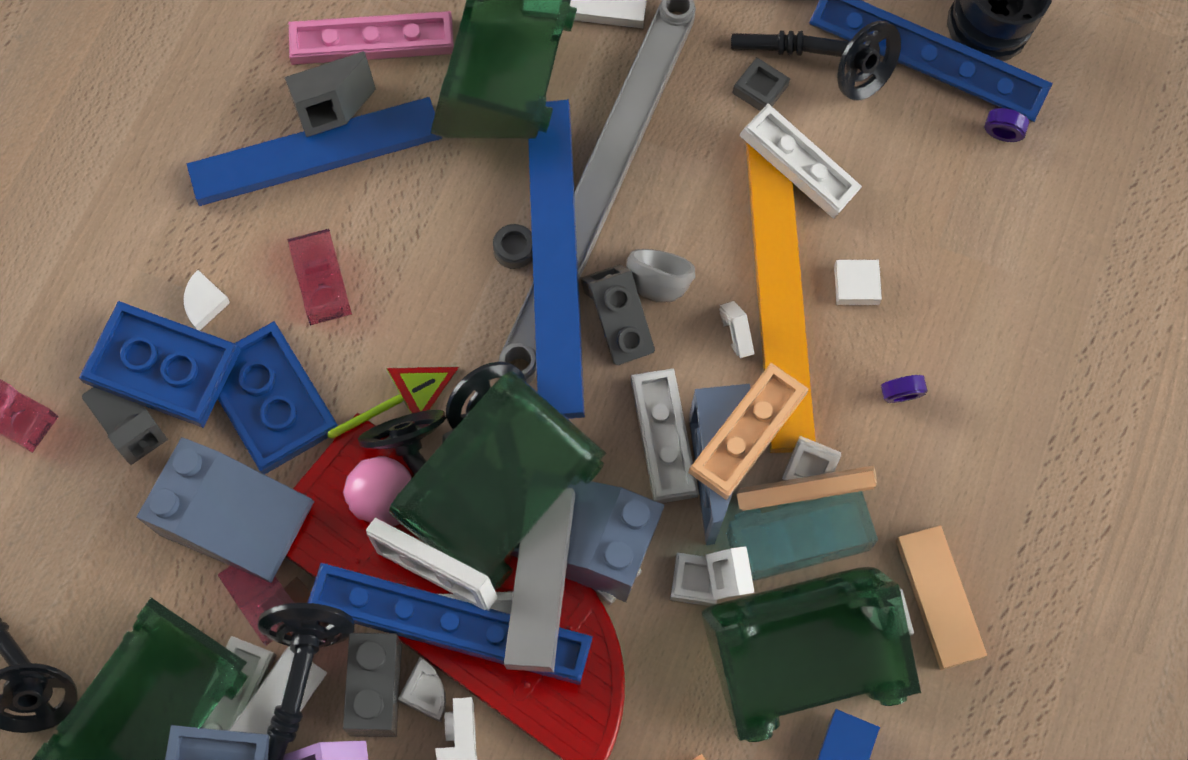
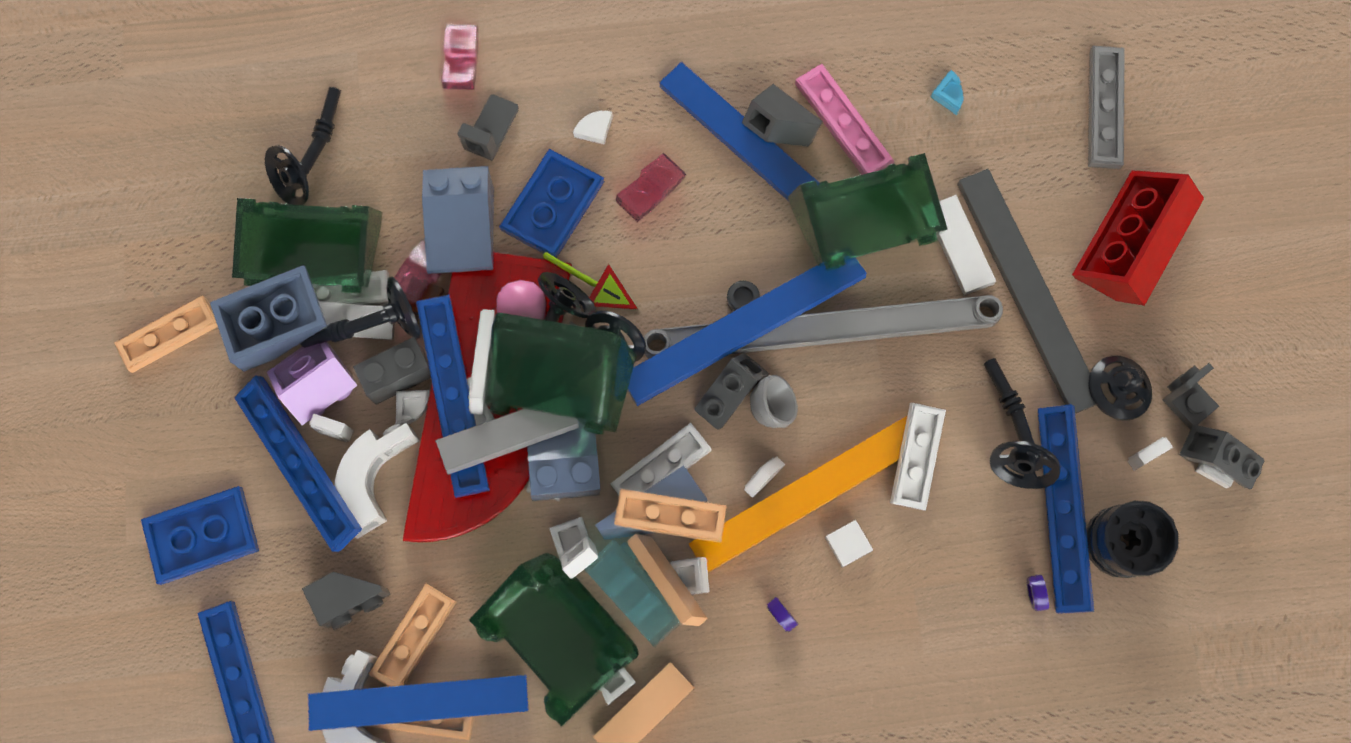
camera: 70 degrees right, 5 degrees up
(160, 364) = (534, 127): blue tile -> none
(761, 85) = (966, 400): dark grey tile -> none

